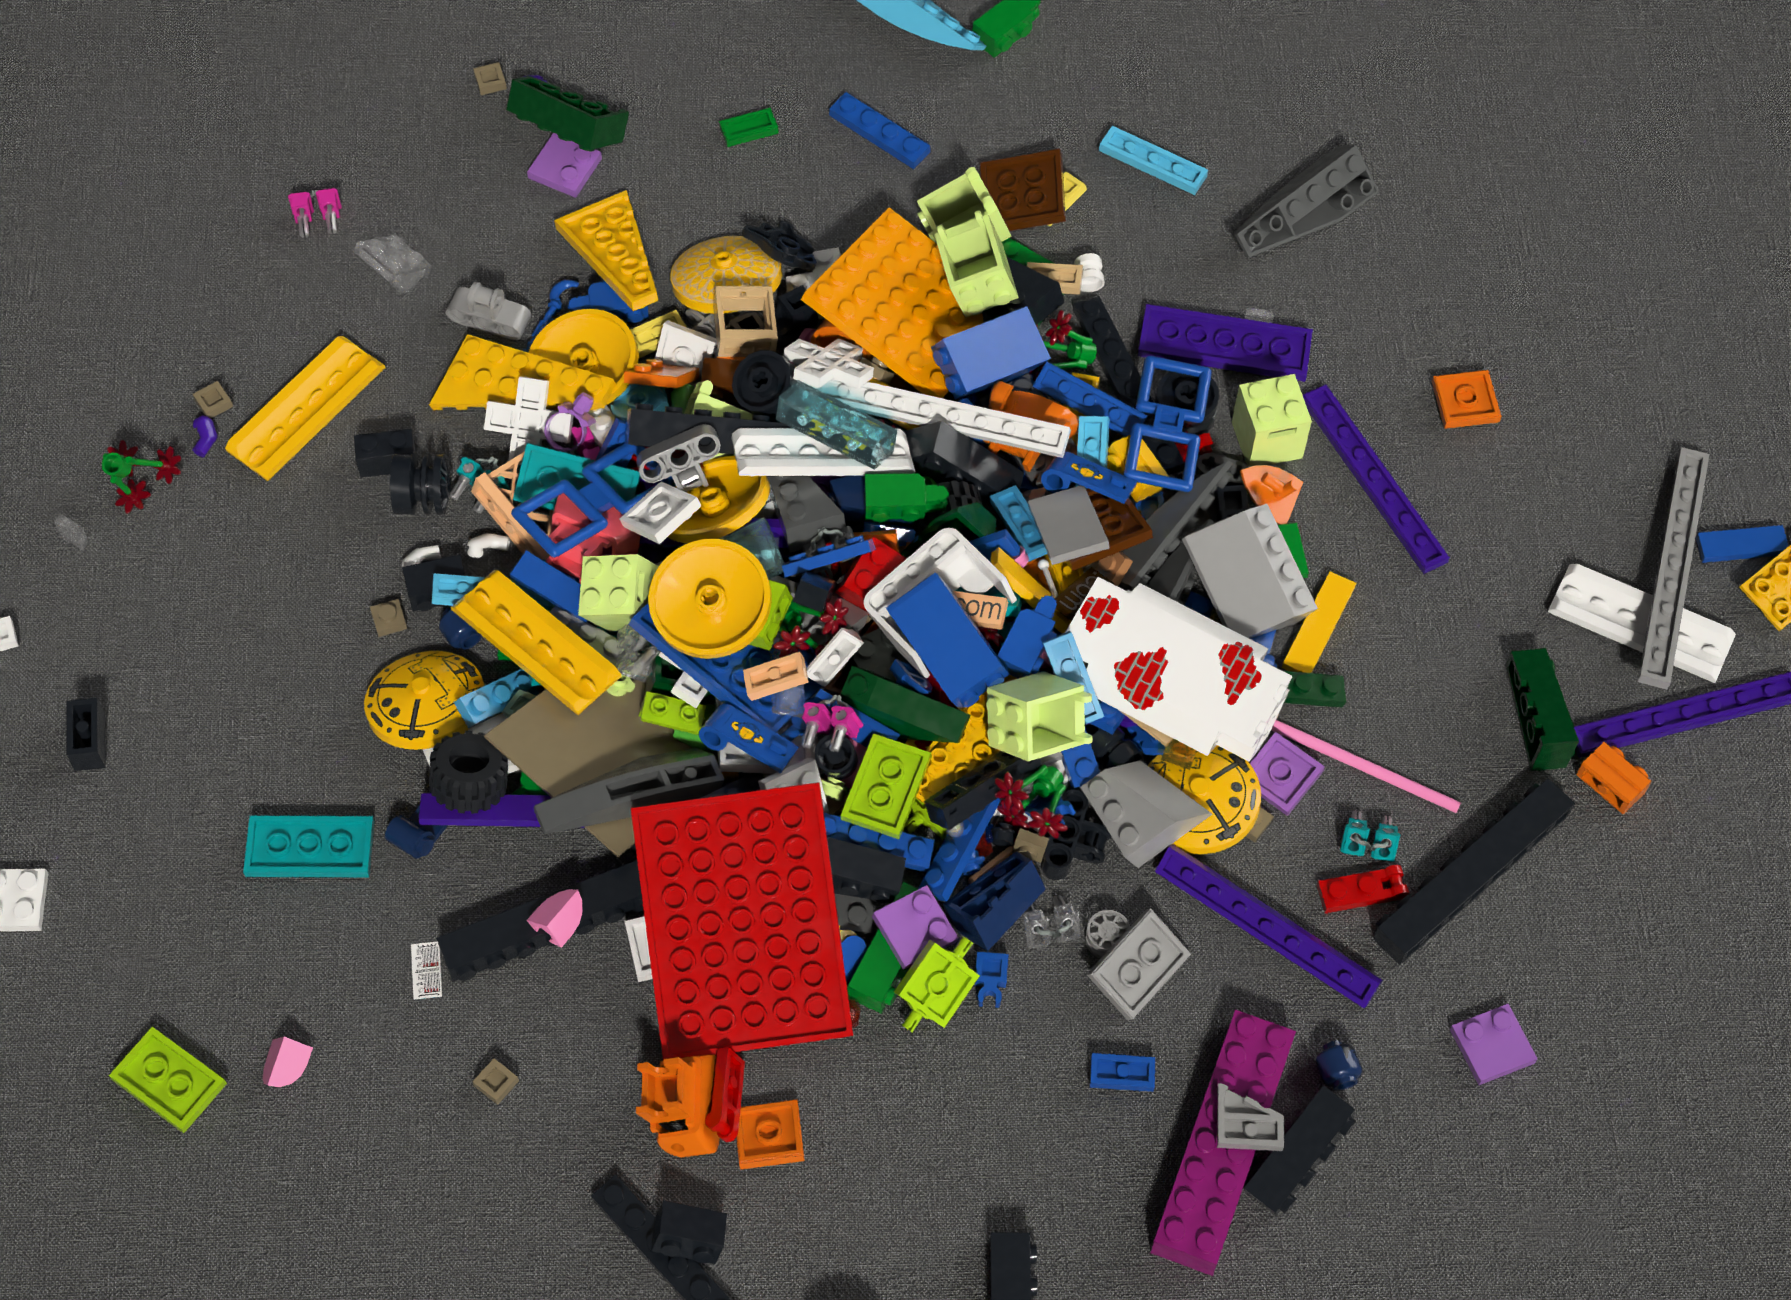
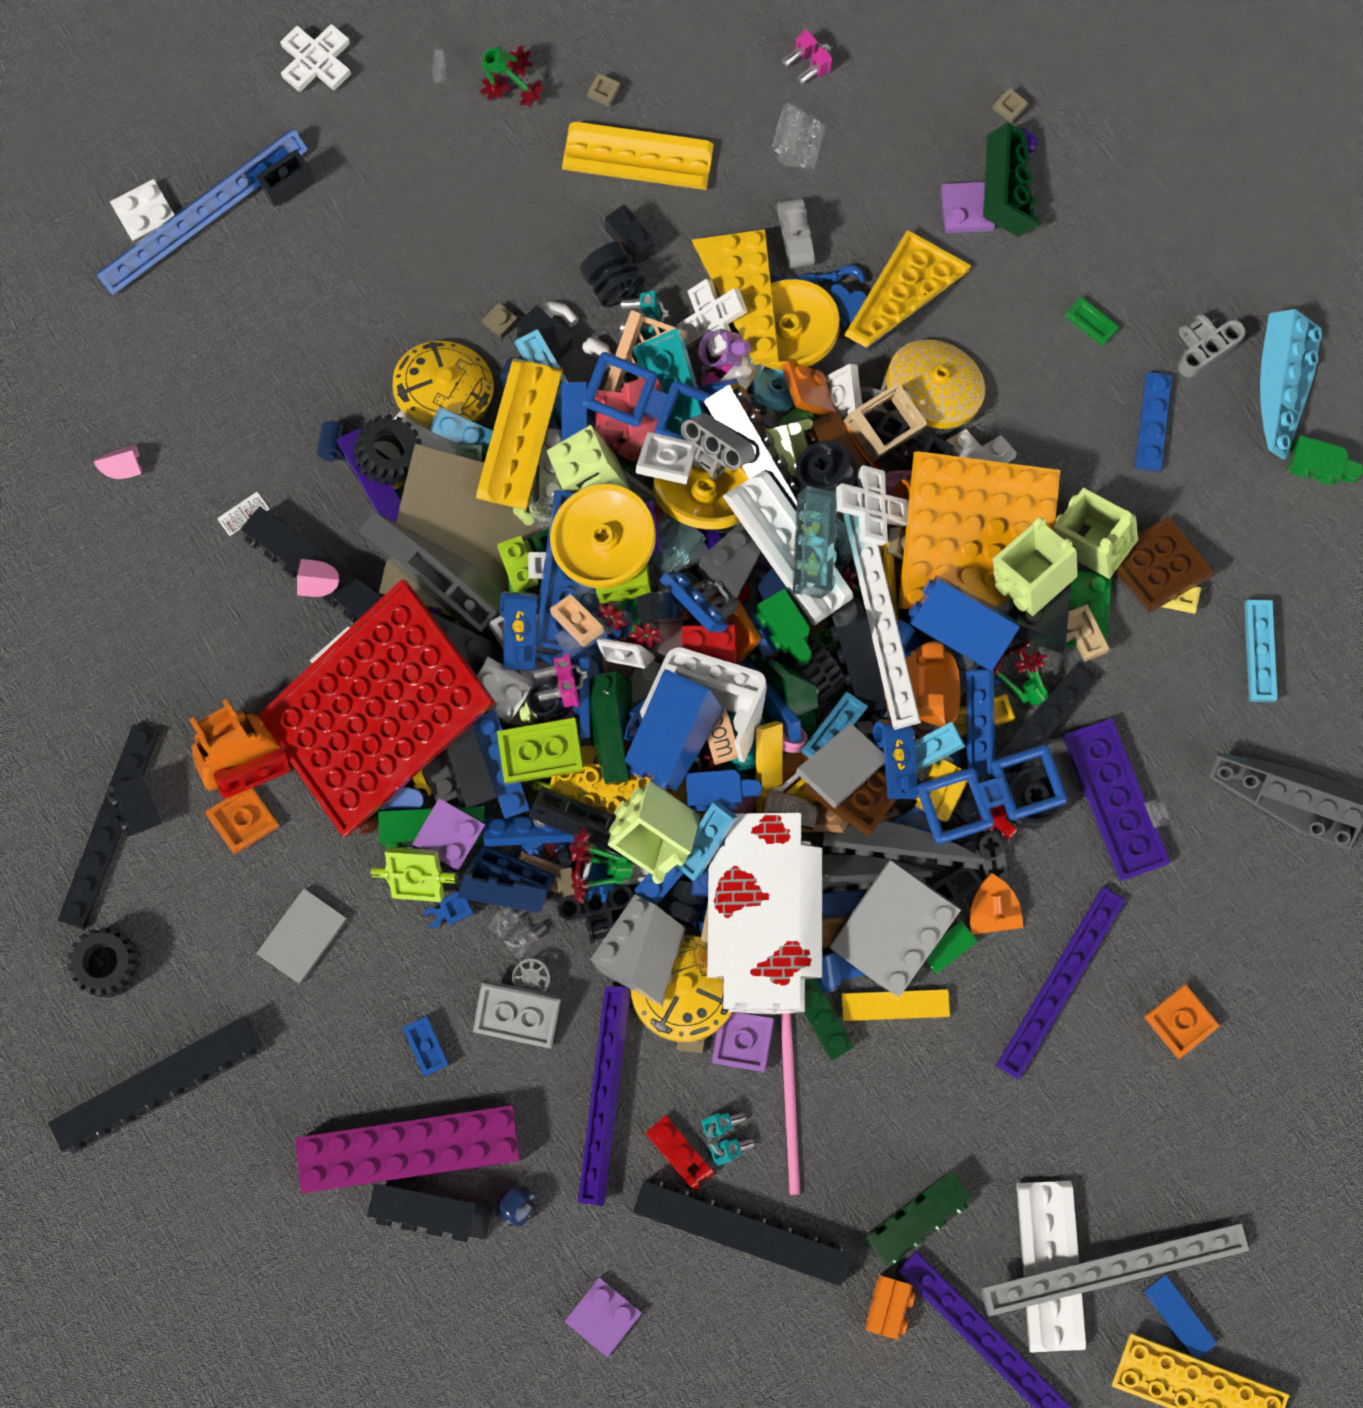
camera: 60 degrees right, 15 degrees up
(58, 843) = (196, 215): none -> plate
(167, 1079) = (68, 394): lime plate -> none
(207, 434) = (575, 103): dark purple arm -> none
(309, 846) = (288, 378): teal plate -> none
(495, 1081) = (182, 610): dark tan plate -> none
(649, 333) = (844, 355): light yellow plate -> none
(782, 244) = (987, 410): black tile -> none
(834, 49) = (1202, 334): none -> light grey piece
(932, 1139) = (301, 936): none -> light grey tile
(1092, 276) = (1116, 656): white wheel -> none
(1246, 1124) = (416, 1160): light grey wing -> none
(1271, 421) = (1052, 874): yellowish green container -> none

